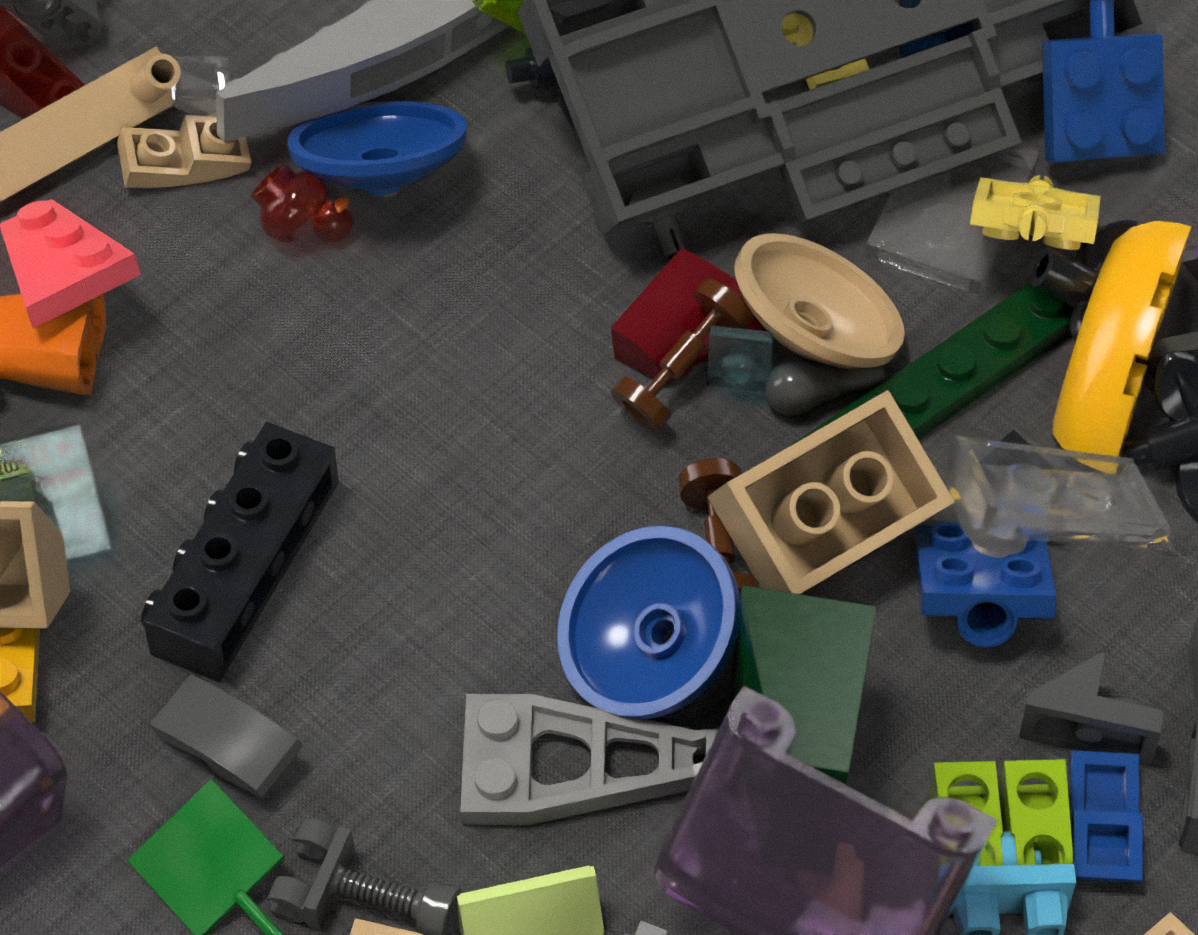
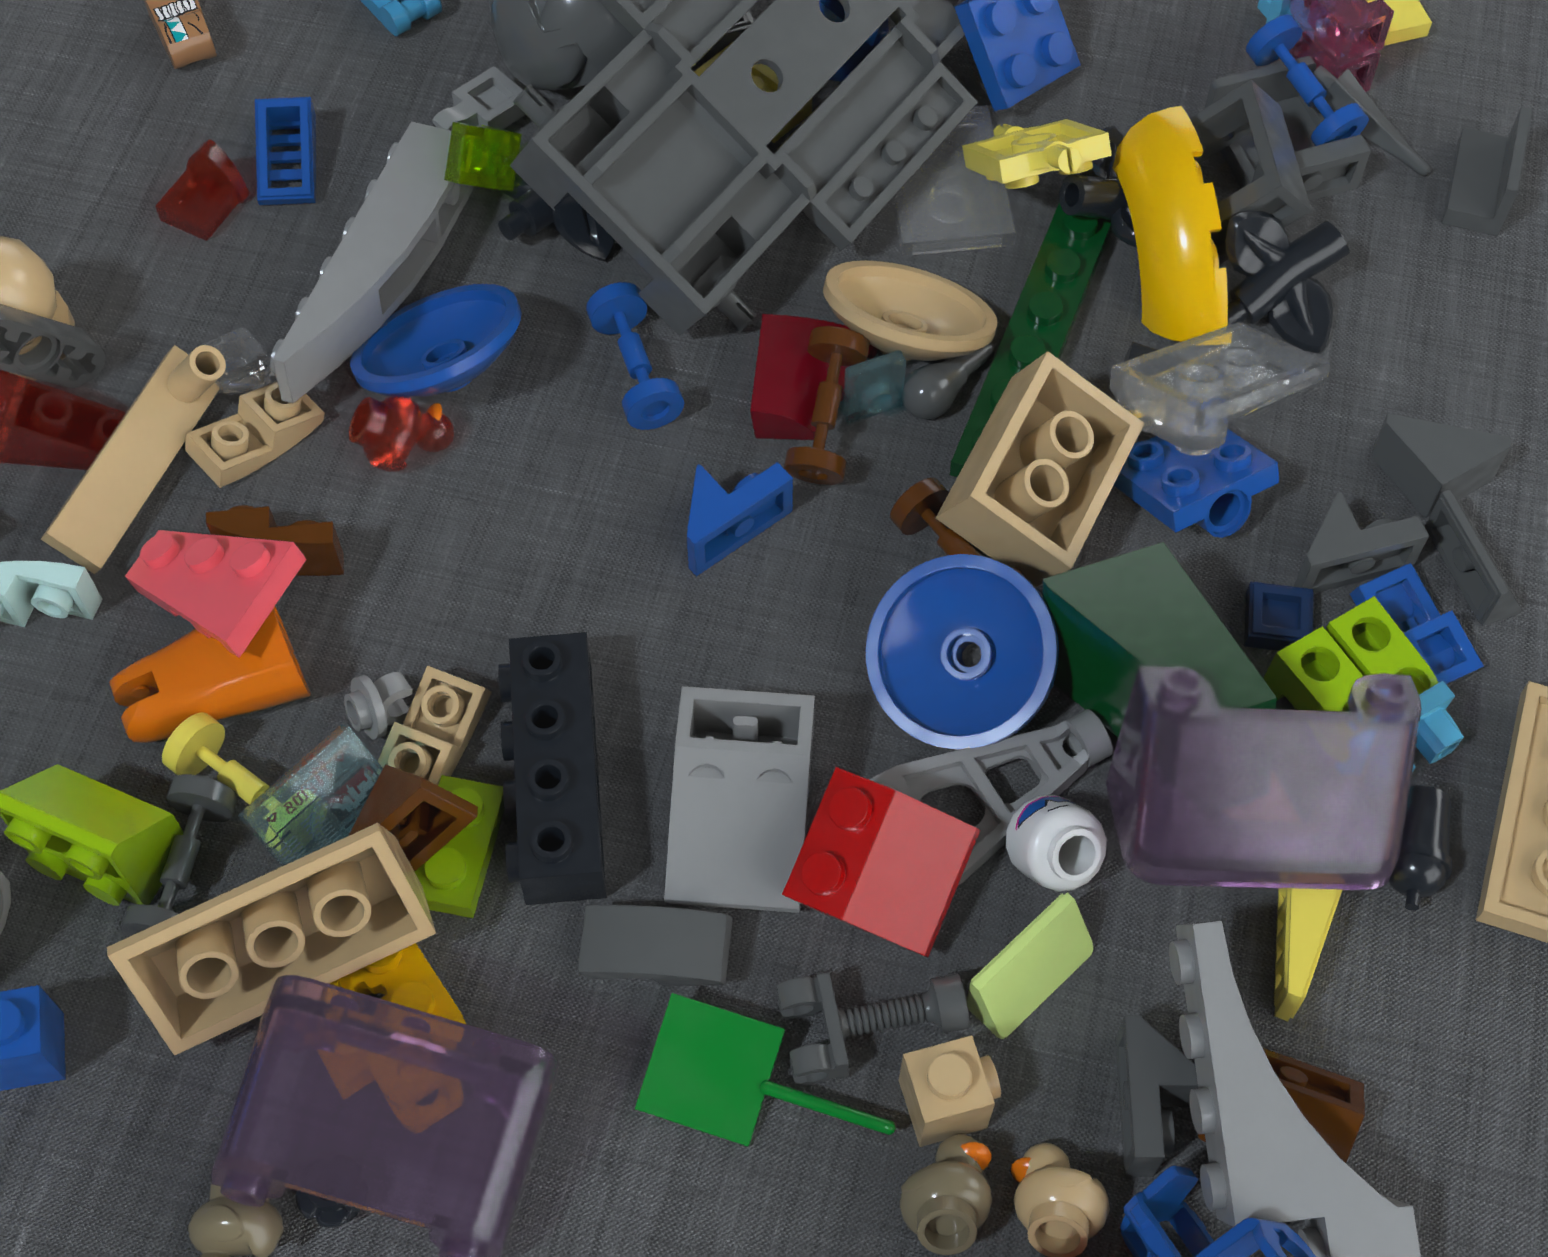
camera: 30 degrees left, 5 degrees up
(92, 526) = (415, 812): none -> reddish brown slope
(121, 577) = (458, 870): none -> lime plate
(134, 427) = (377, 704): none -> light grey plate
(162, 267) = (314, 539): none -> reddish brown slope
(169, 475) = (435, 726): none -> tan slope
(376, 650) = (738, 797): none -> light grey slope
(449, 759) = (881, 861): none -> slope
(527, 417) = (727, 521): none -> blue slope
(535, 281) = (652, 401): none -> blue wheel
(619, 846) = (1056, 842): none -> white head
(982, 736) = (1277, 615): none -> dark blue tile

